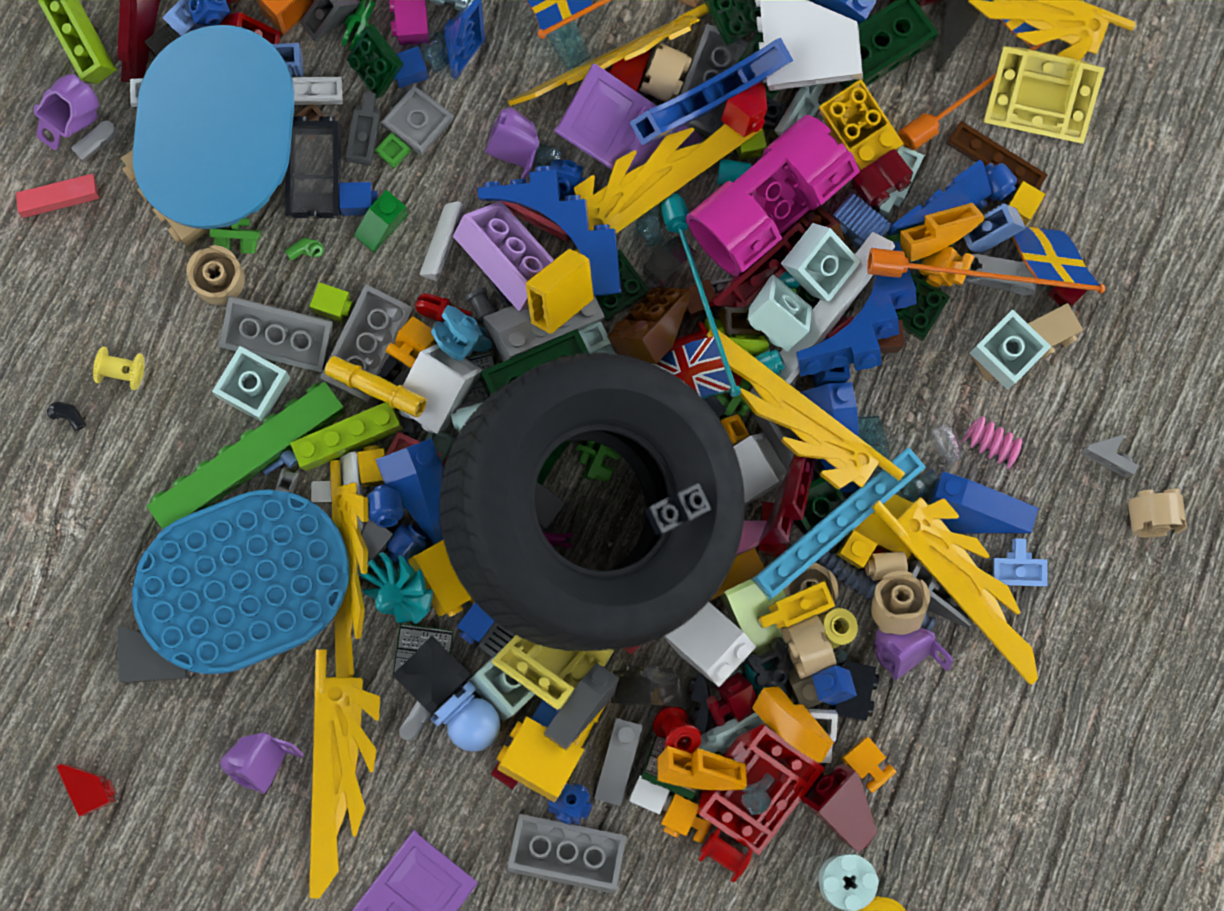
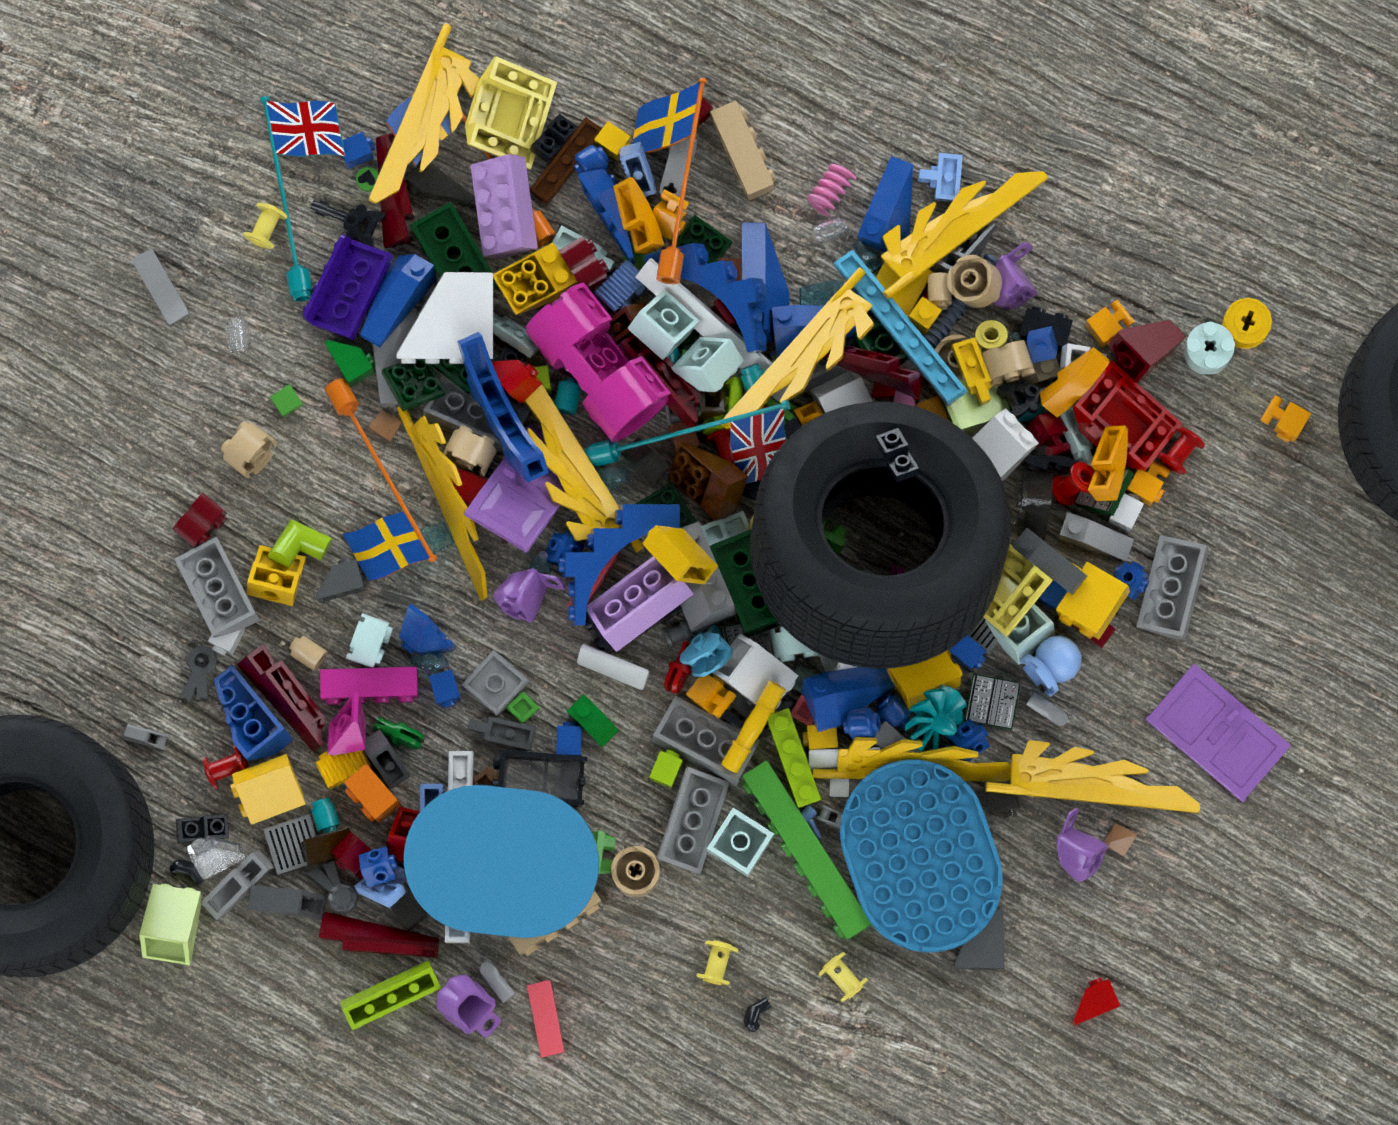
camera: 70 degrees left, 0 degrees up
(105, 507) = (845, 979): none -> light yellow hose
(274, 807) = (1120, 839): none -> medium nougat slope
(305, 665) = (998, 803): none -> clear smoke slope
(306, 247) = (611, 790): bright green arm -> none
(375, 61) = (440, 716): dark green tile -> none
(378, 630) = (970, 737): none -> blue brick
(431, 675) = (1013, 692): black brick -> none
(756, 797) = (1134, 419): clear light blue piece -> none
(900, 372) = (761, 261): none -> wedge
(938, 90) = (504, 206): none -> lavender brick
(1010, 349) = (754, 165): light aqua brick -> none
(1016, 140) = (553, 138): none -> black slope
(1105, 455) = (847, 92): light grey slope -> none
(1157, 513) = (905, 54): tan brick -> none

